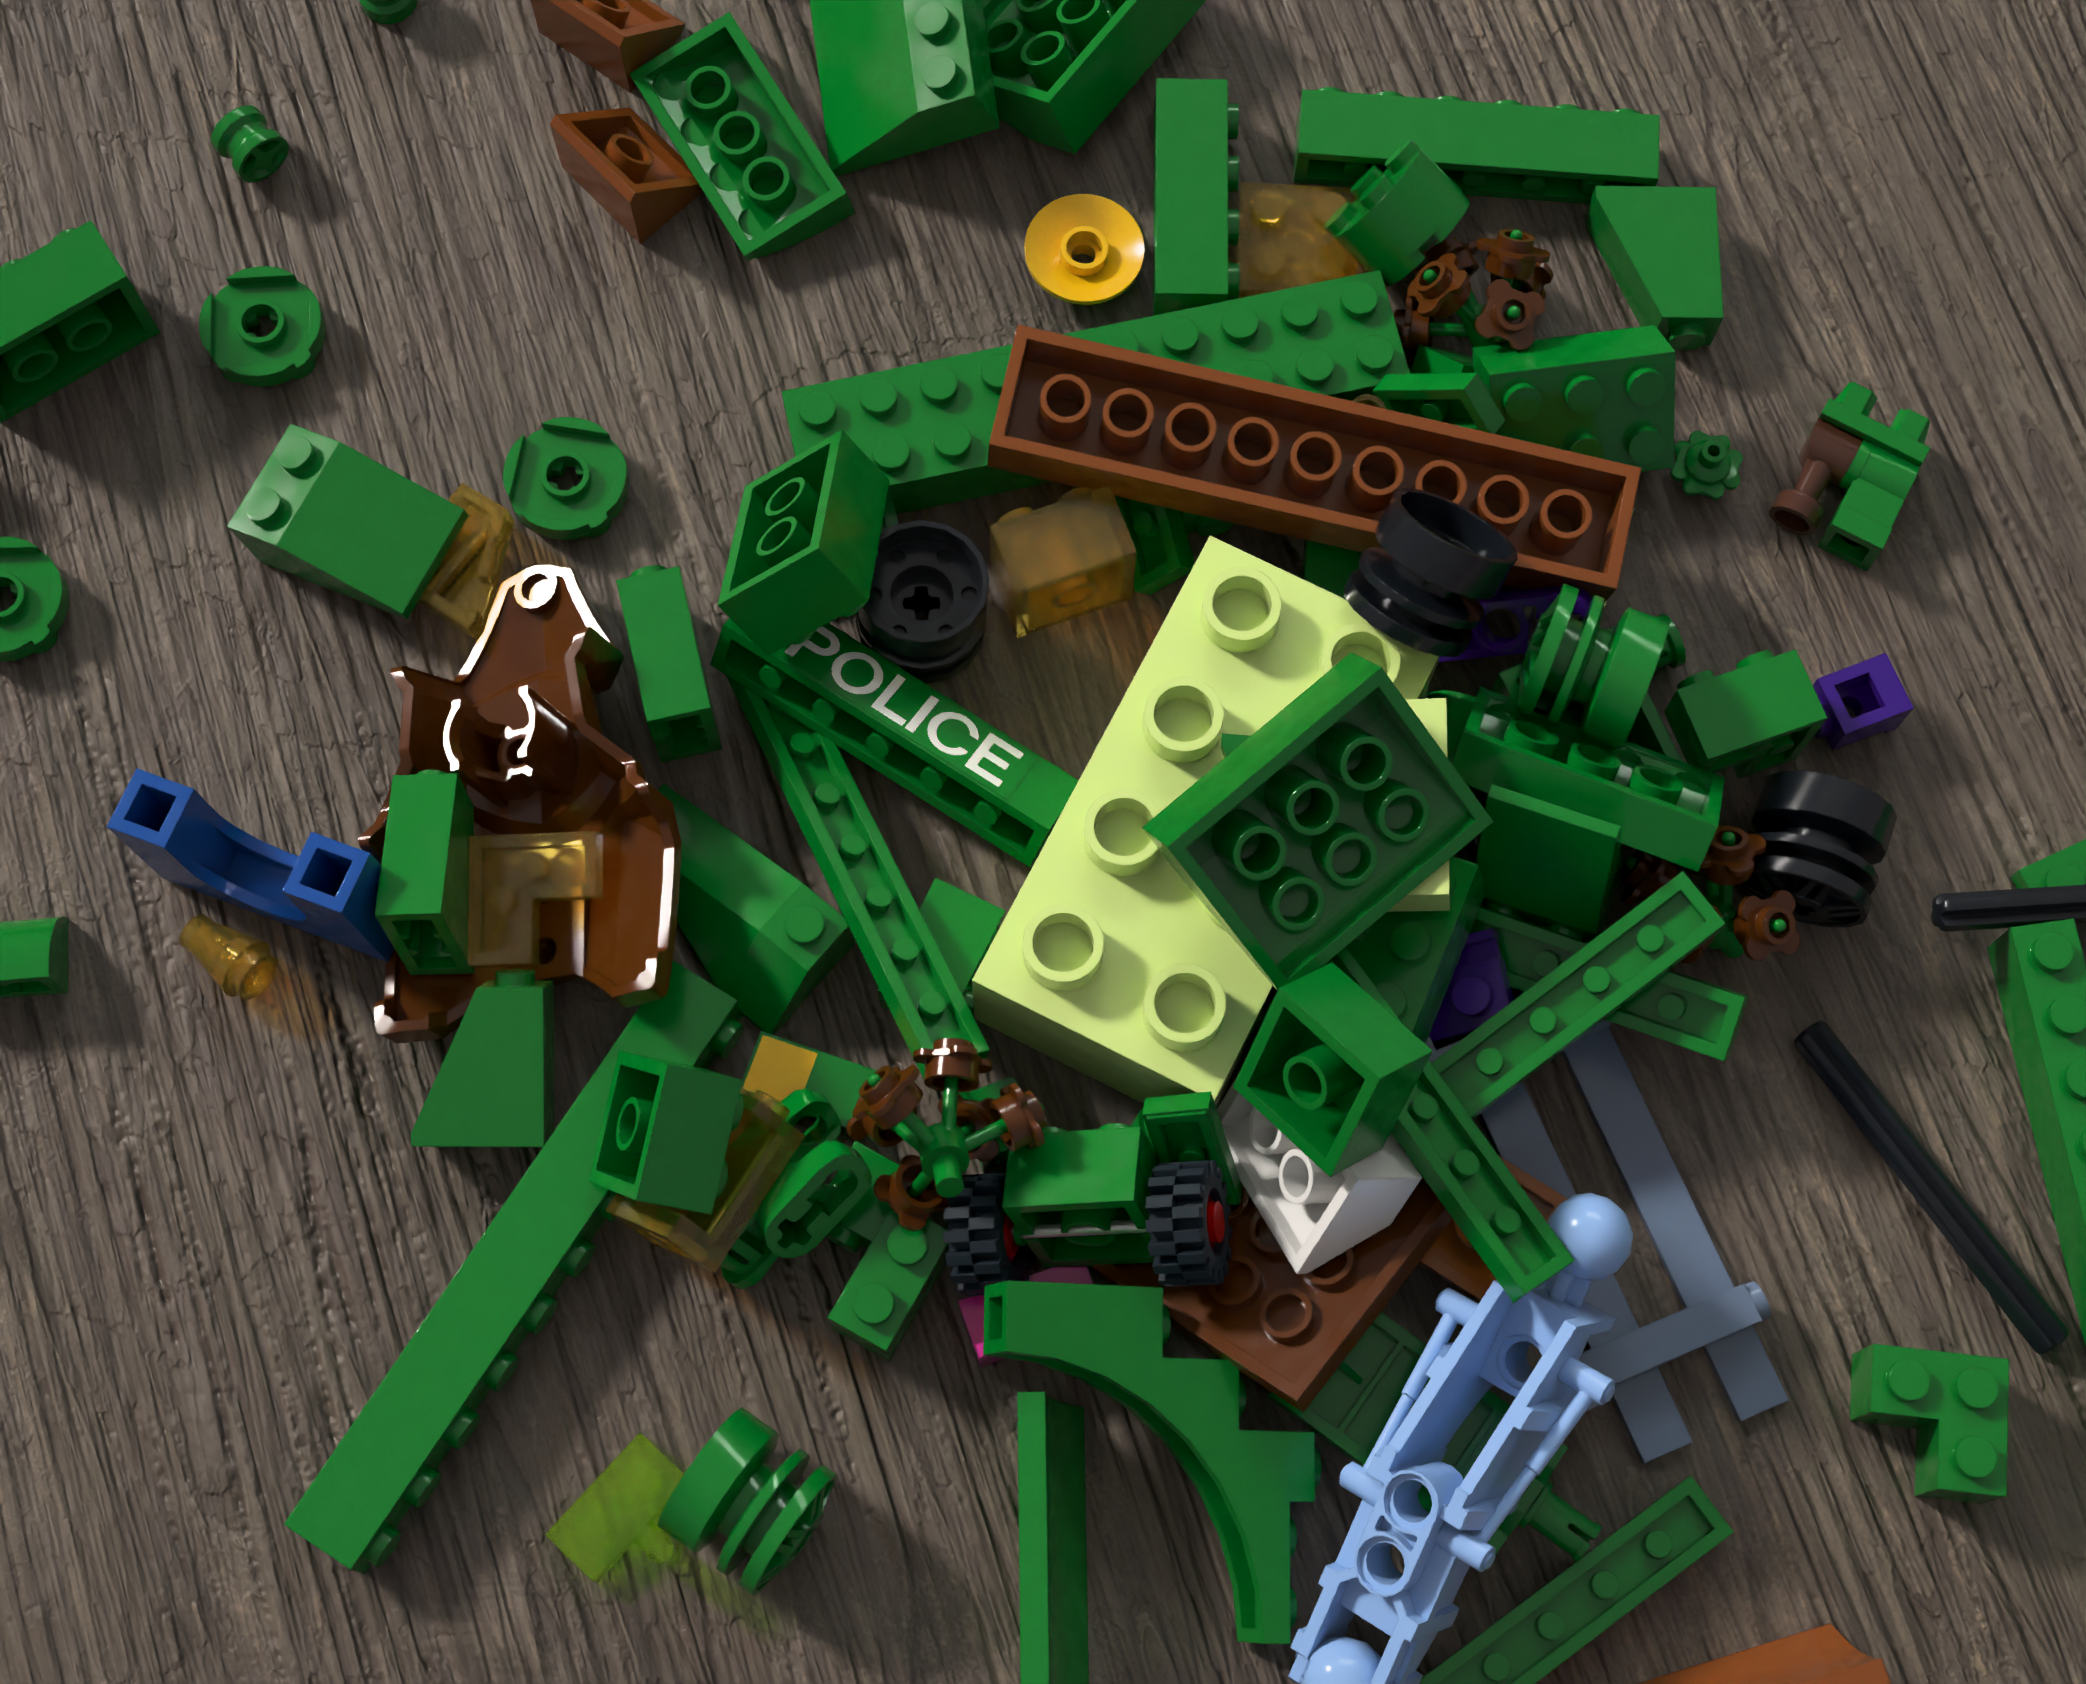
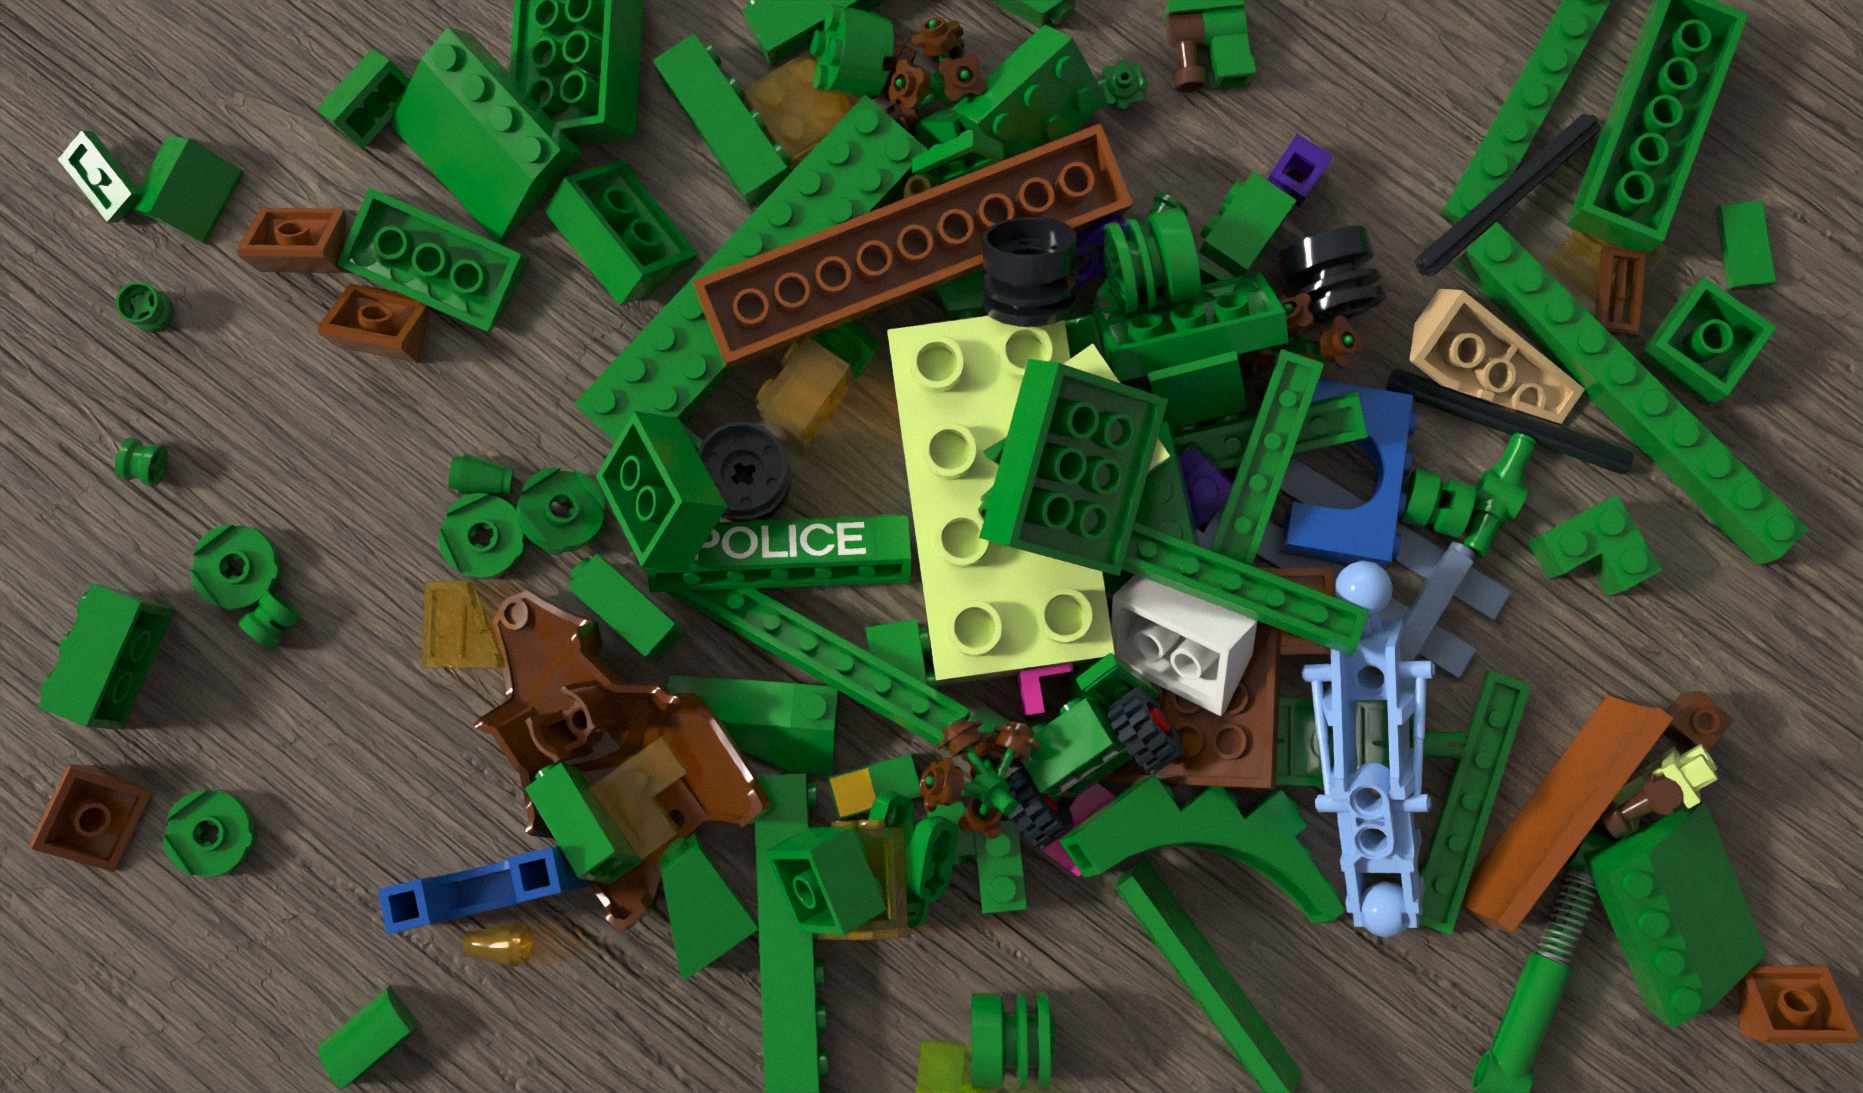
camera: 30 degrees left, 10 degrees up
(254, 407) = (269, 619): none -> green wheel
(346, 522) = (378, 652): green slope -> none
(611, 404) = (478, 475): none -> green cone
(657, 533) = (553, 532): none -> green plate
(970, 242) = (619, 230): none -> green slope
(1088, 227) = (676, 175): yellow dish -> none
(1095, 1077) = (1030, 687): none -> dark pink panel
(1331, 1068) = (1175, 601): green brick -> none
(1651, 1183) = (1370, 529): none -> blue arch
(1758, 1192) = (1423, 496): none -> green wheel
(1854, 1264) = (1499, 494): none -> green pin
(1945, 1075) = (1481, 356): none -> tan wedge

